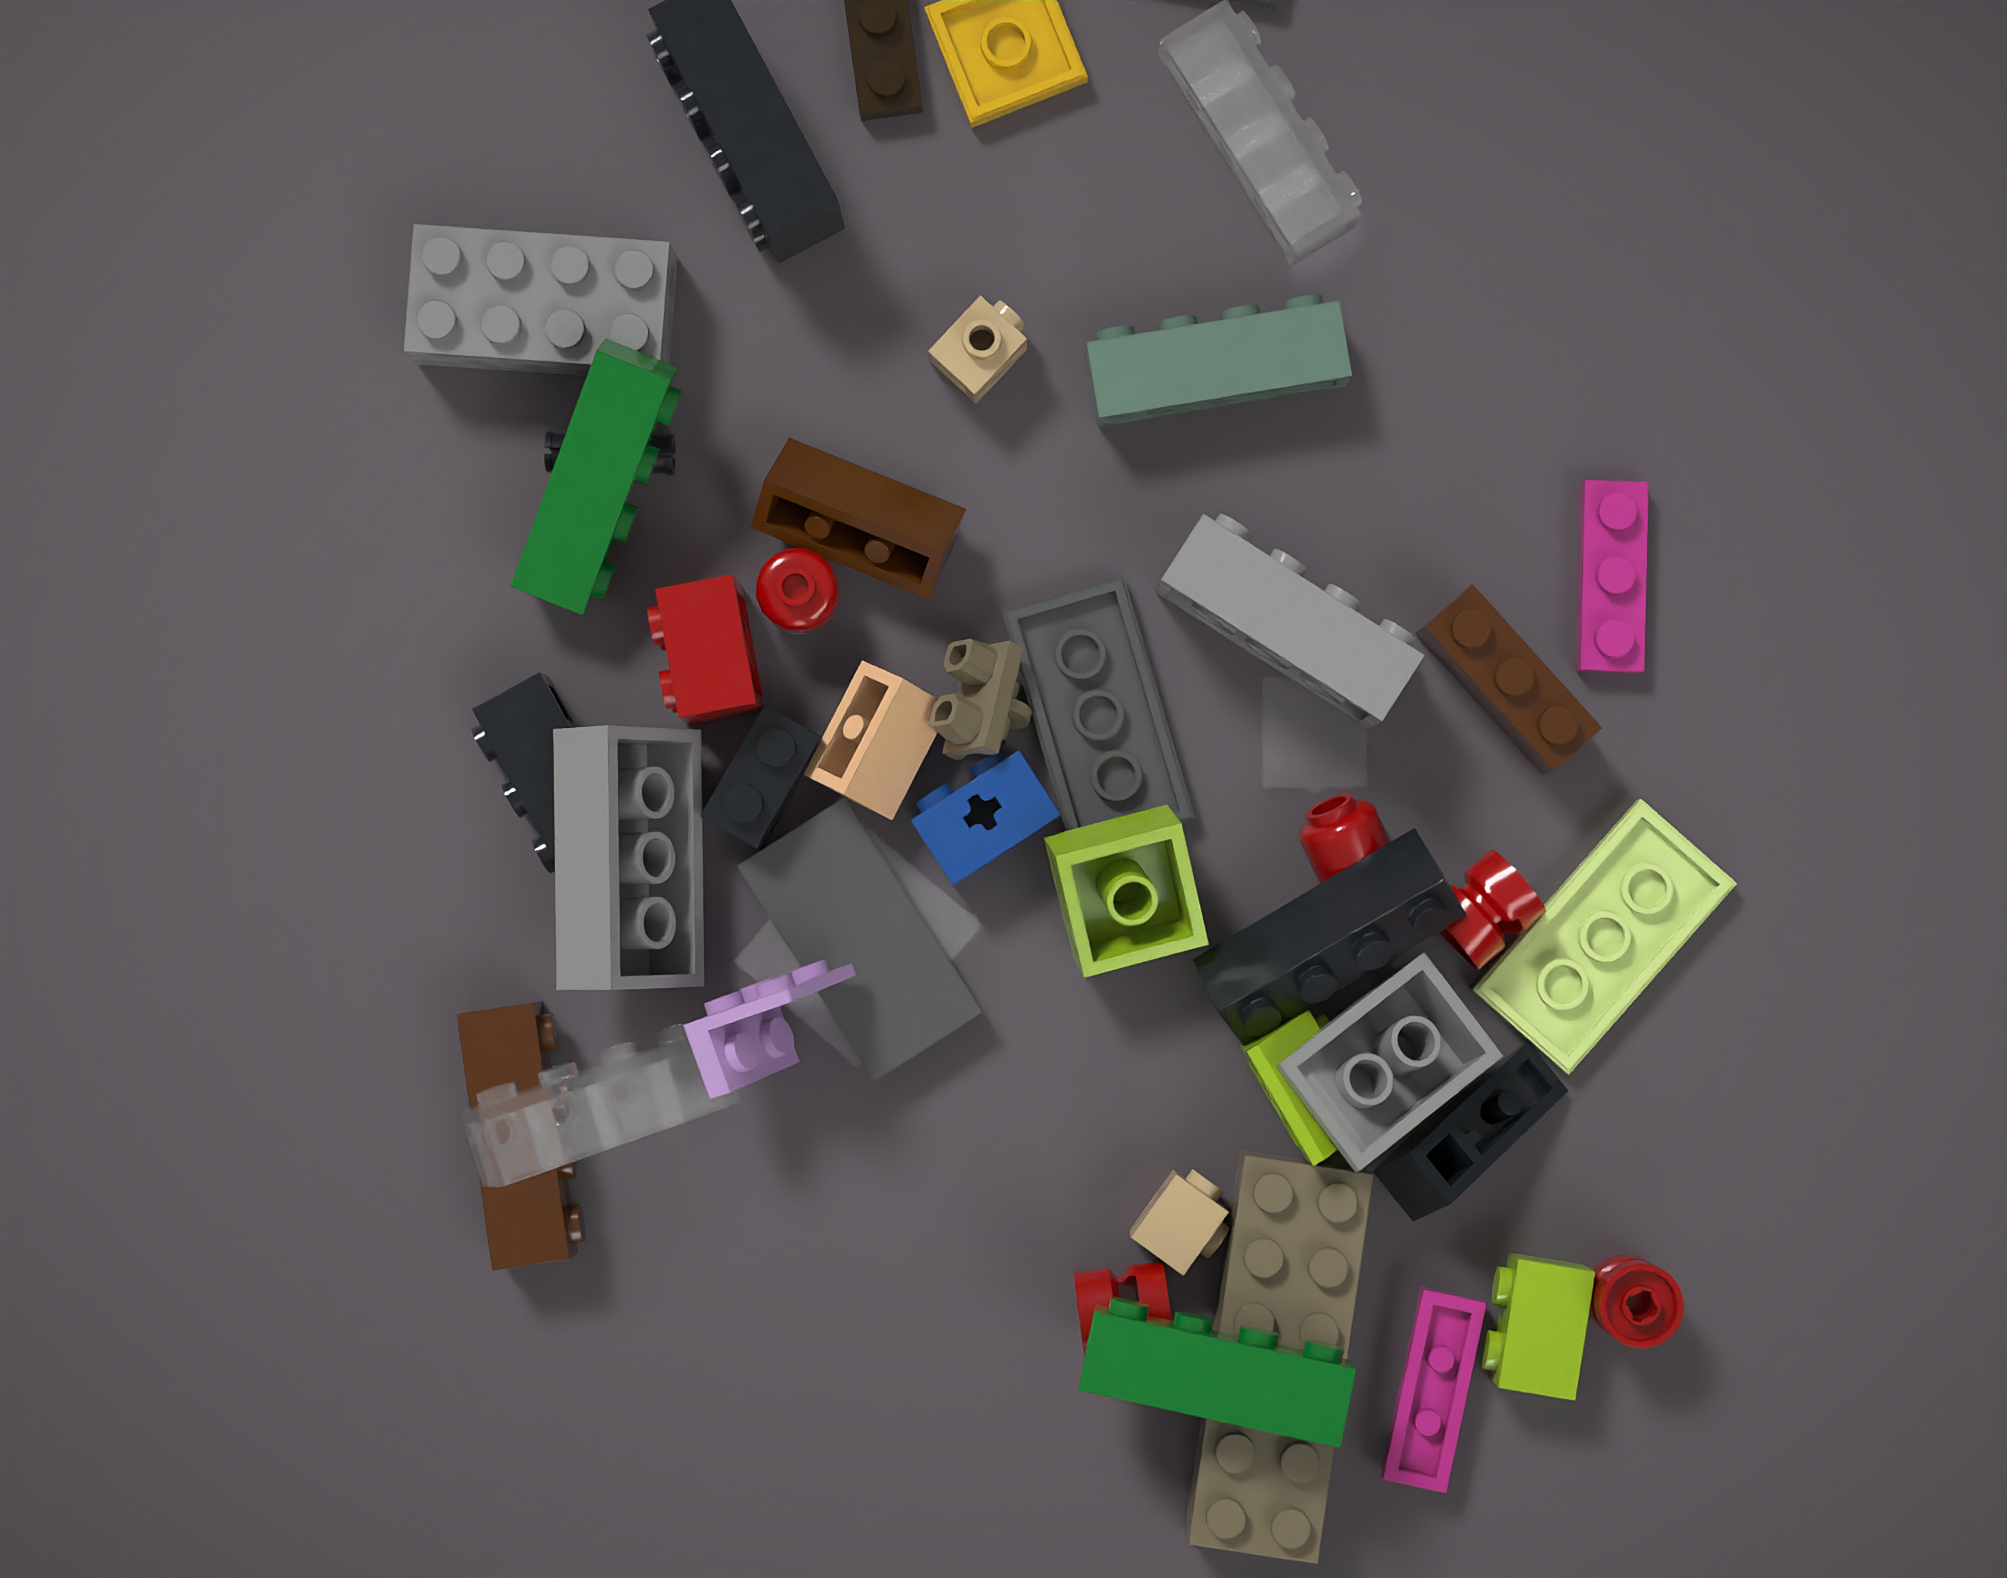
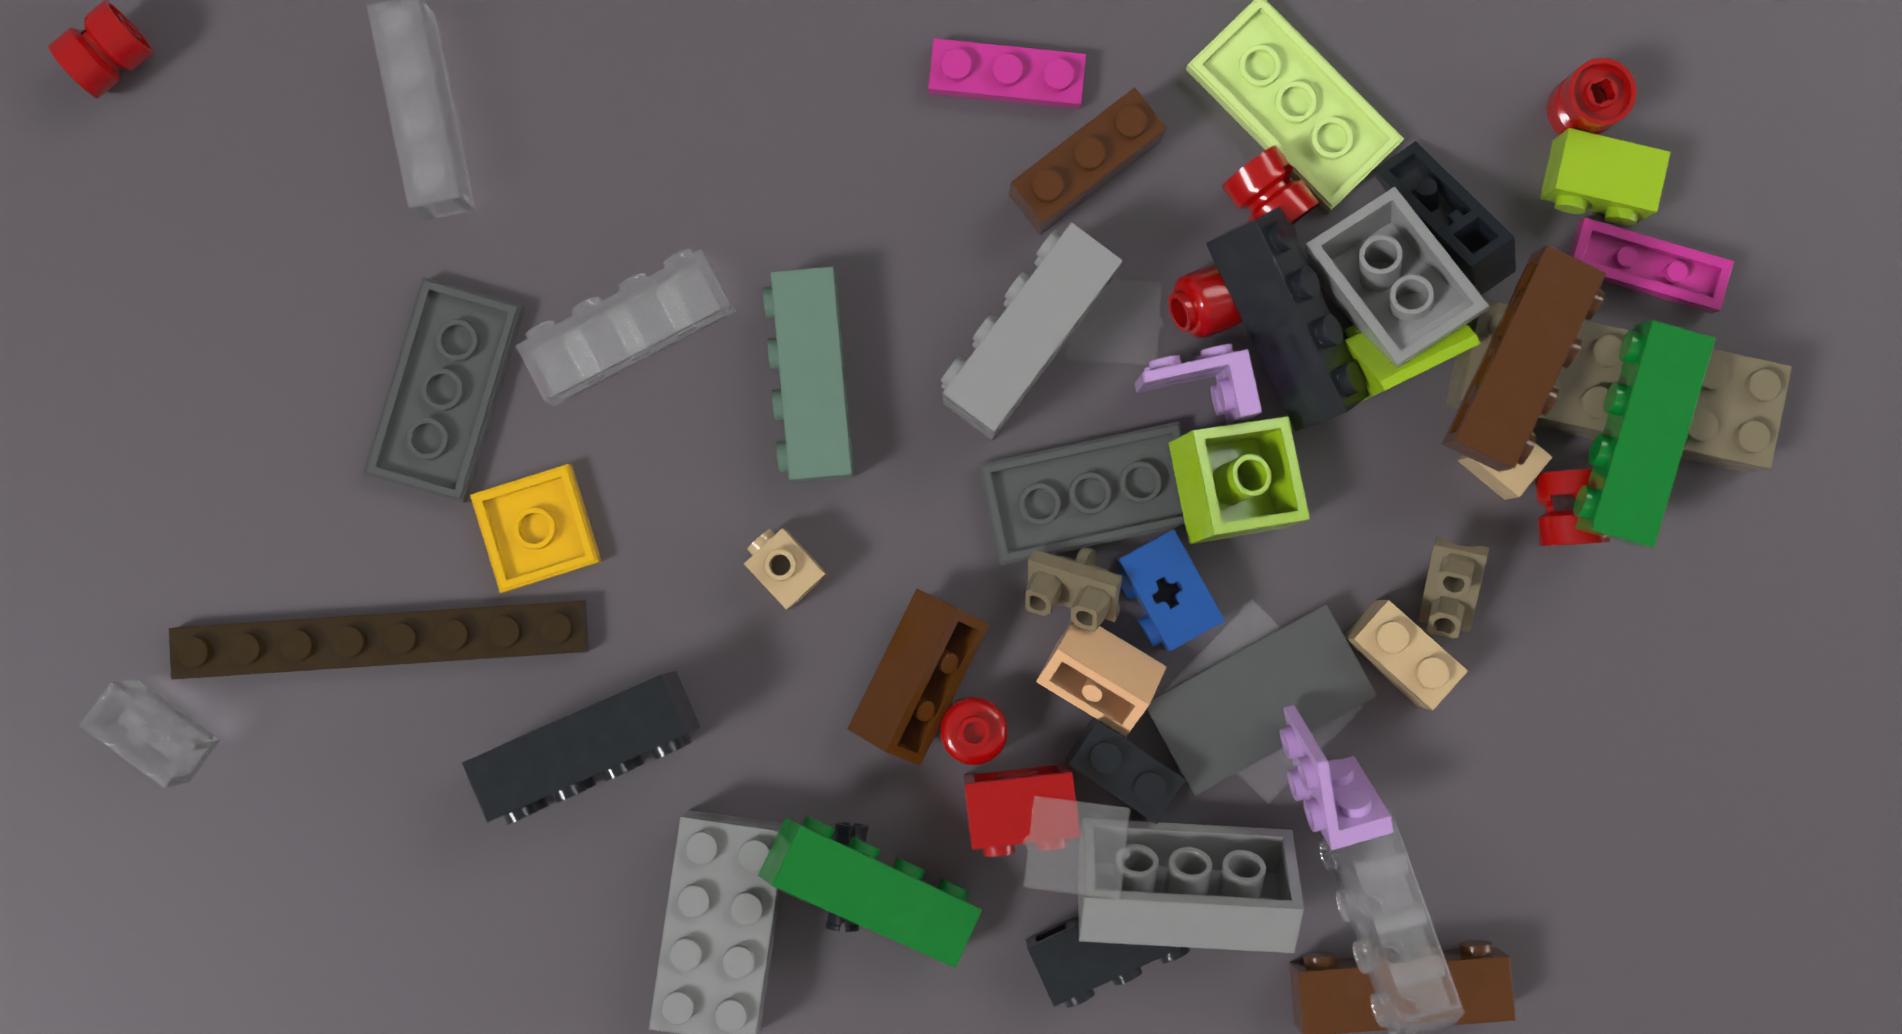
camera: 90 degrees left, 0 degrees up
(665, 711) = (1076, 848): none -> clear piece
(927, 1111) = (1404, 654): none -> tan brick
(1013, 1163) = (1452, 587): none -> dark tan hips
(1235, 873) = (1235, 389): none -> lavender bracket
(1298, 1222) = (1525, 359): none -> reddish brown brick

